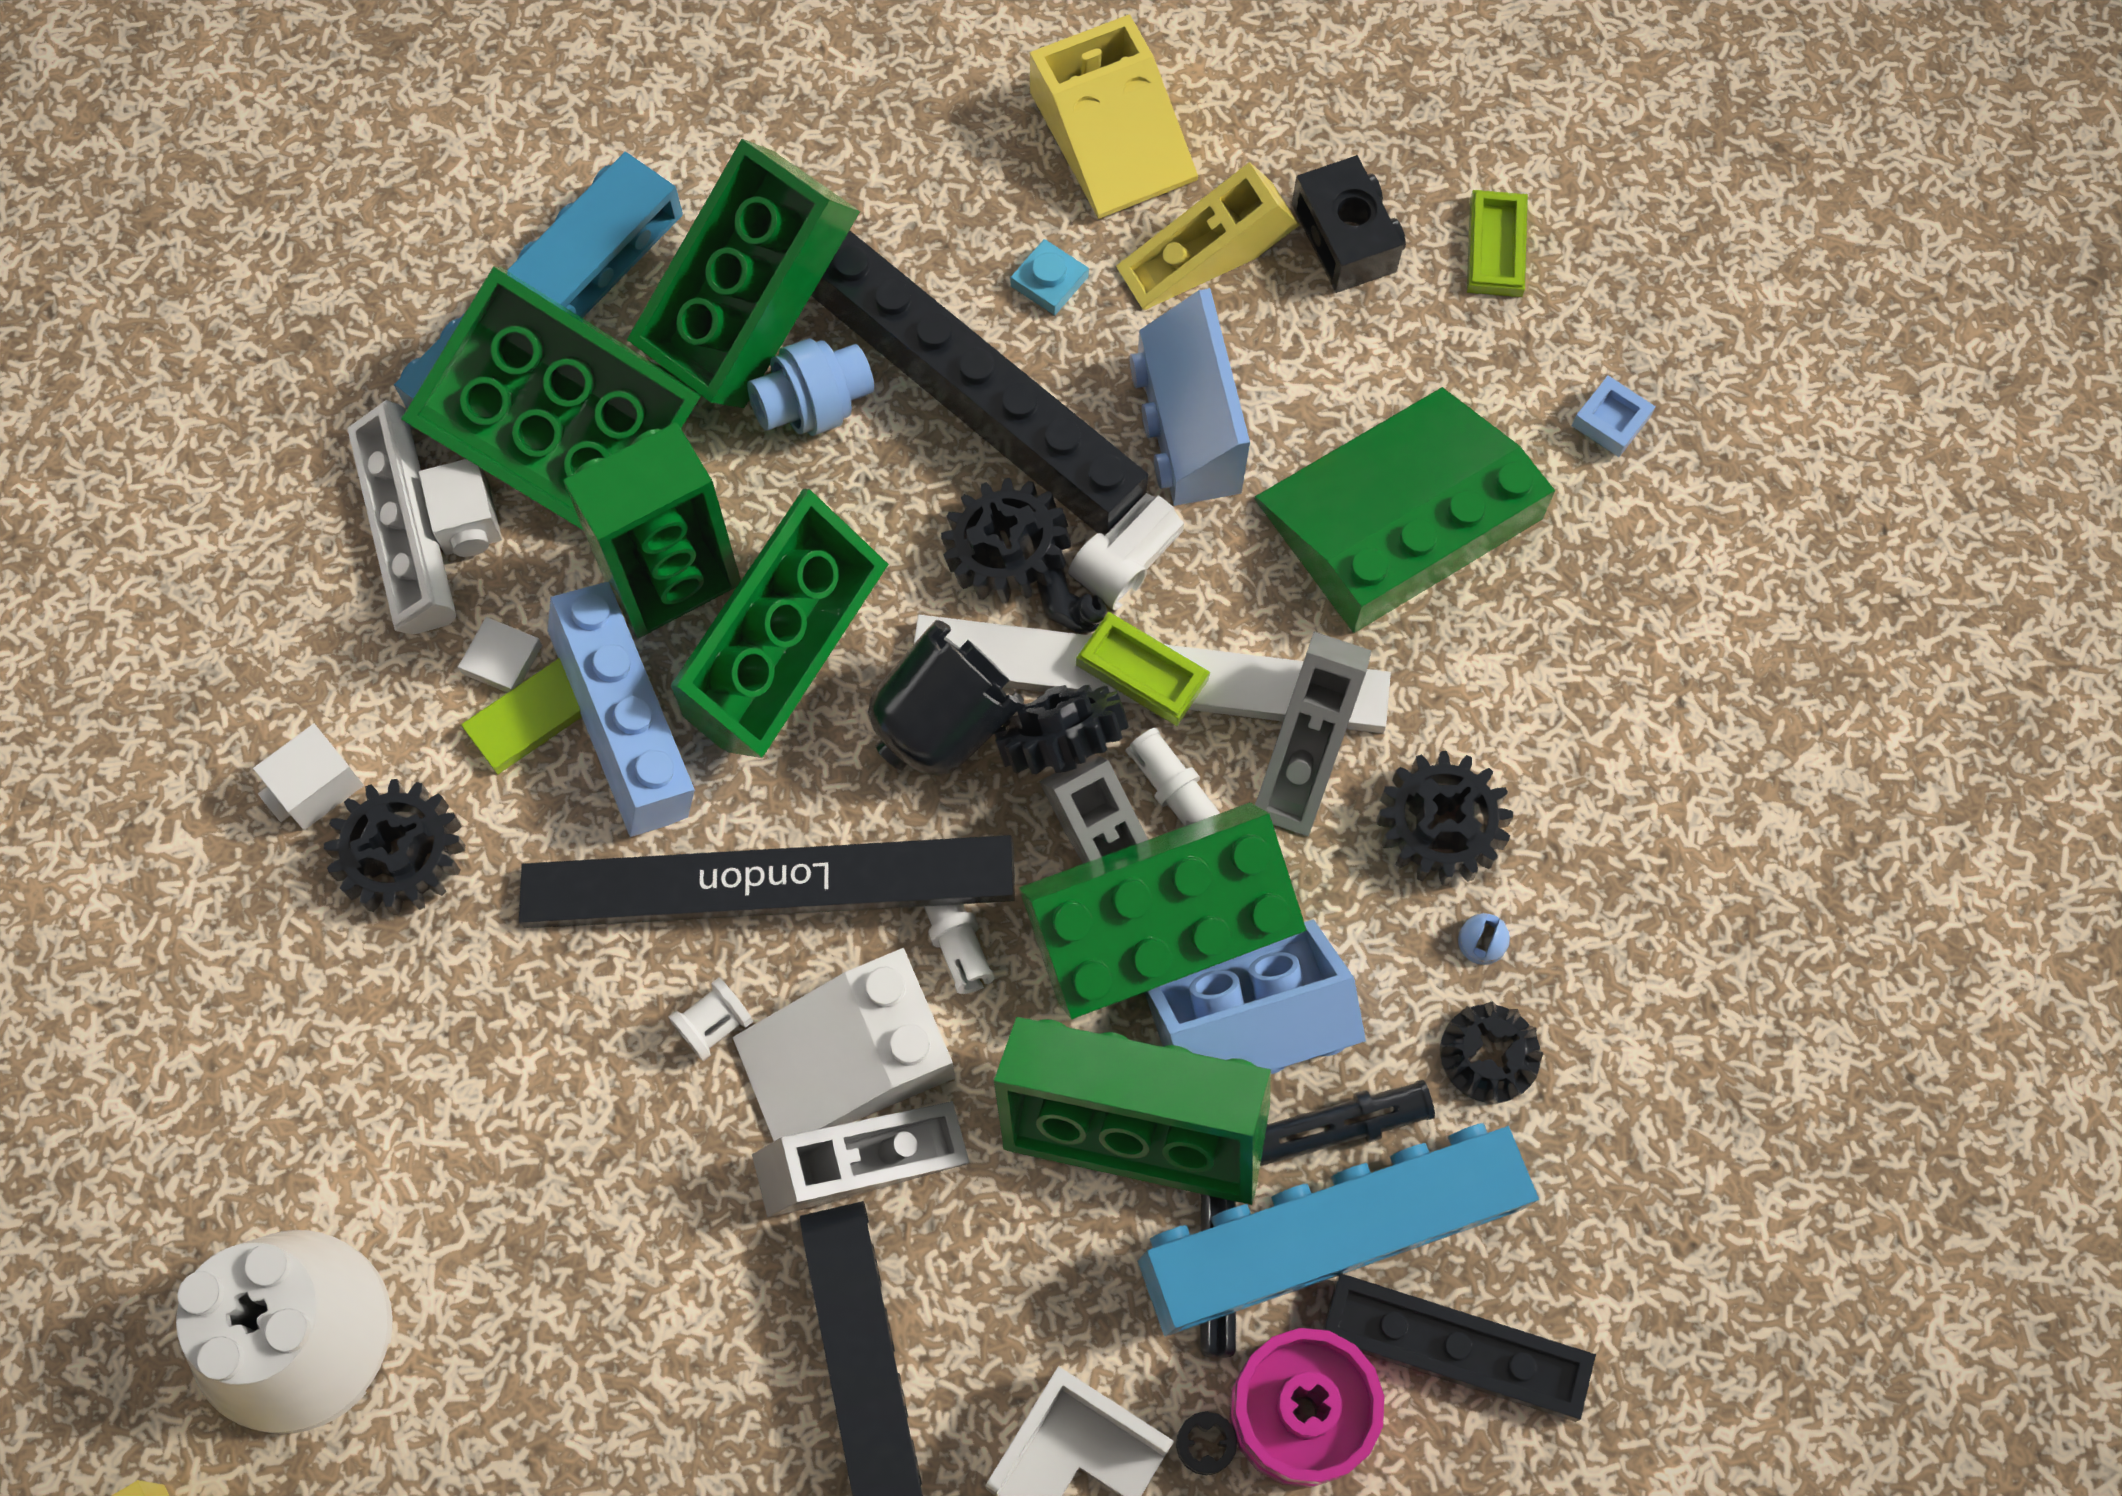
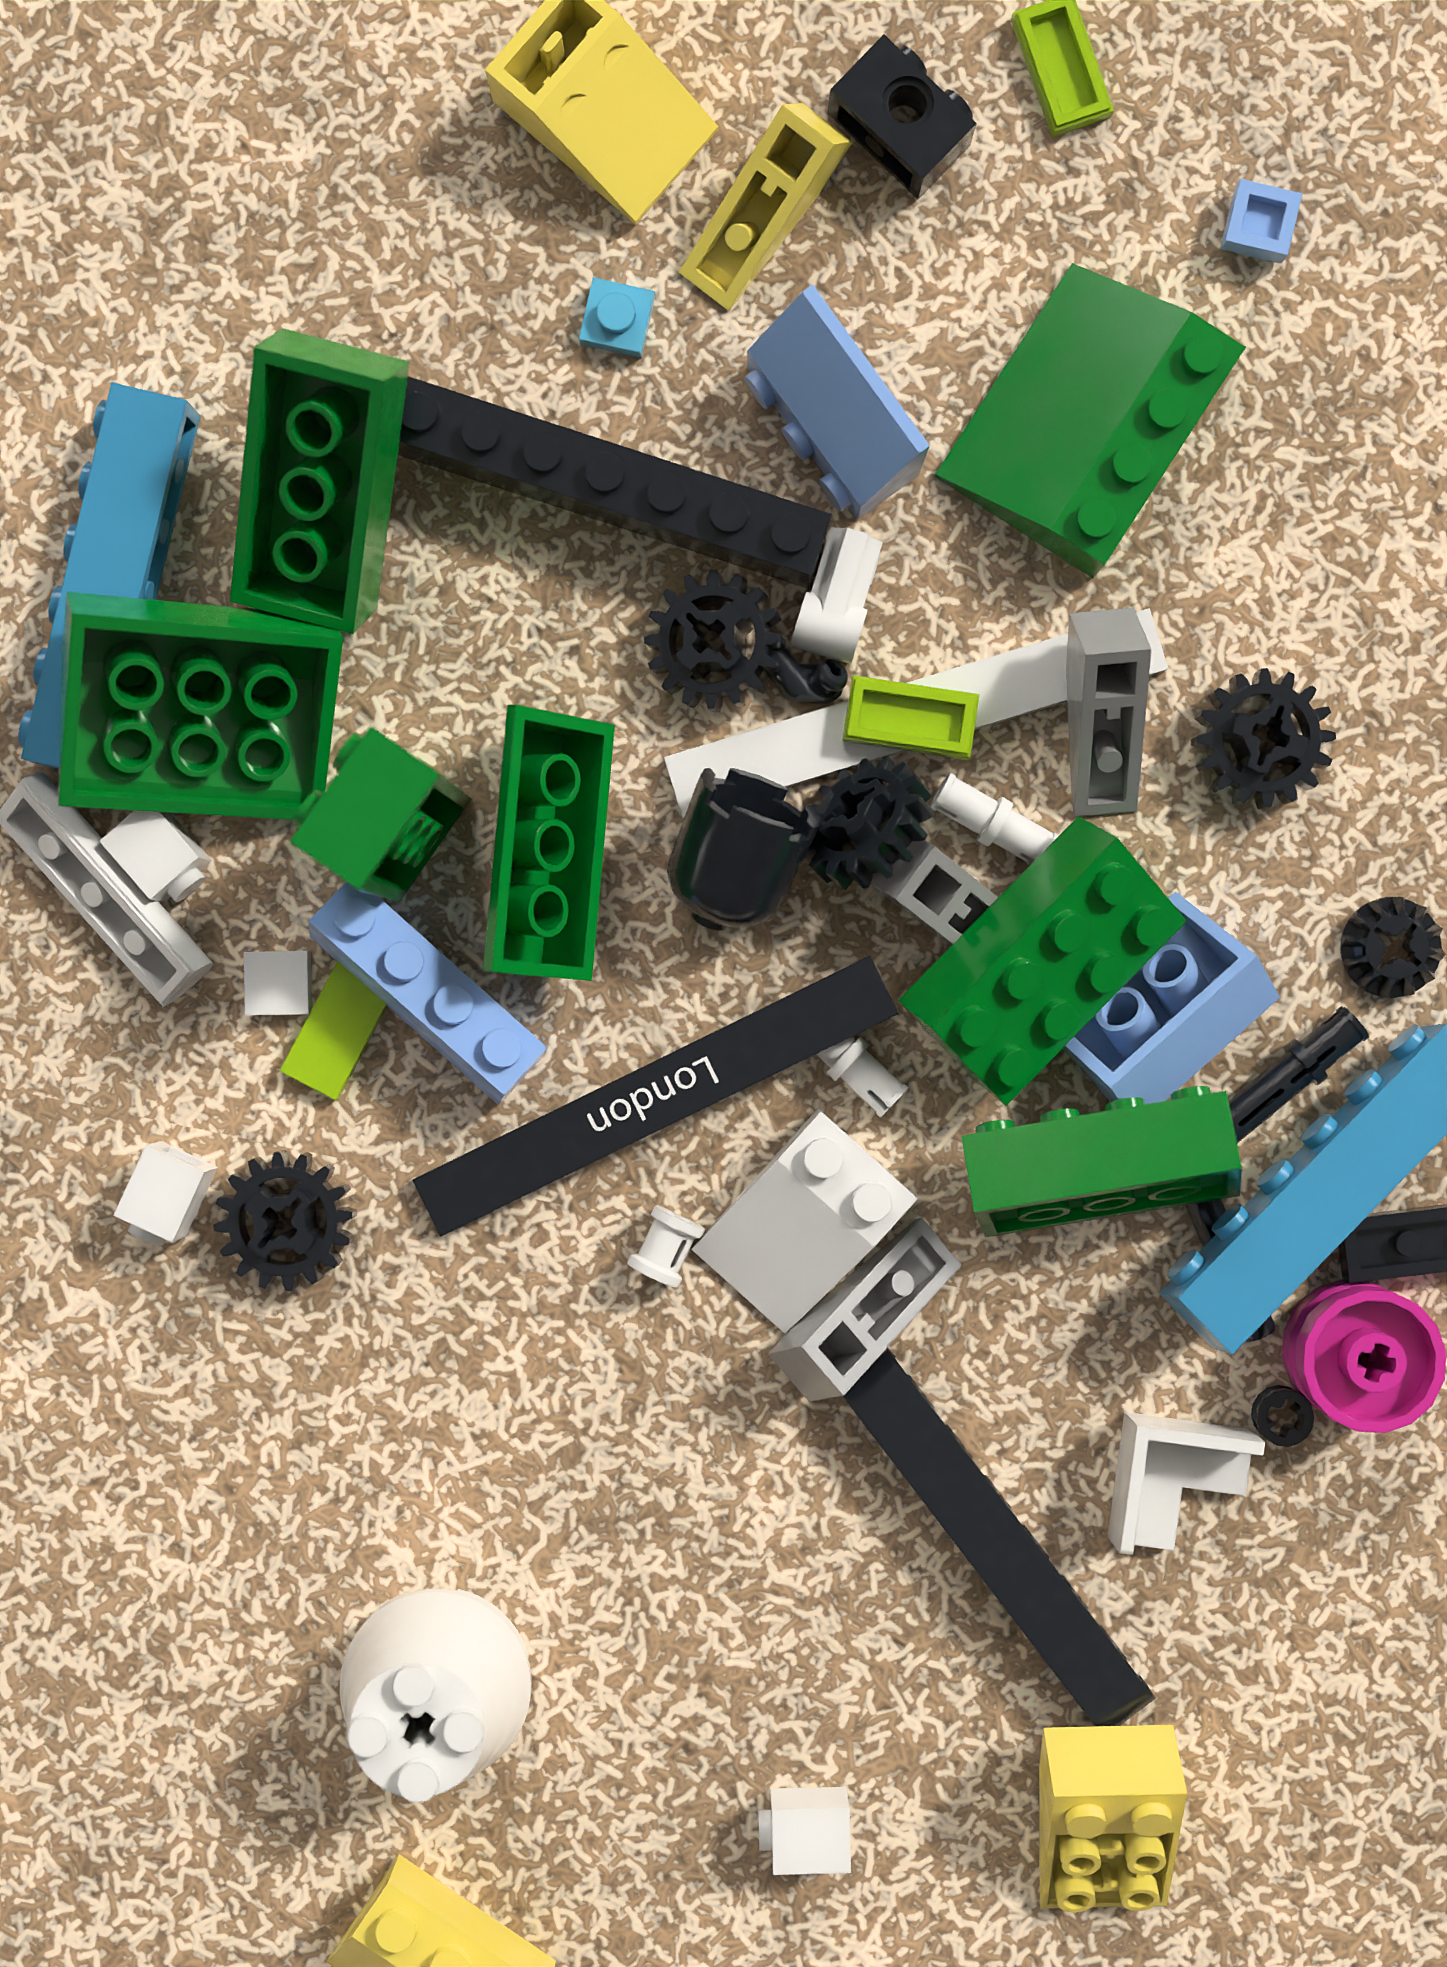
camera: 25 degrees left, 20 degrees up
(810, 387) = (440, 563): light blue piece -> none
(1472, 931) = (1333, 839): light blue hinge -> none

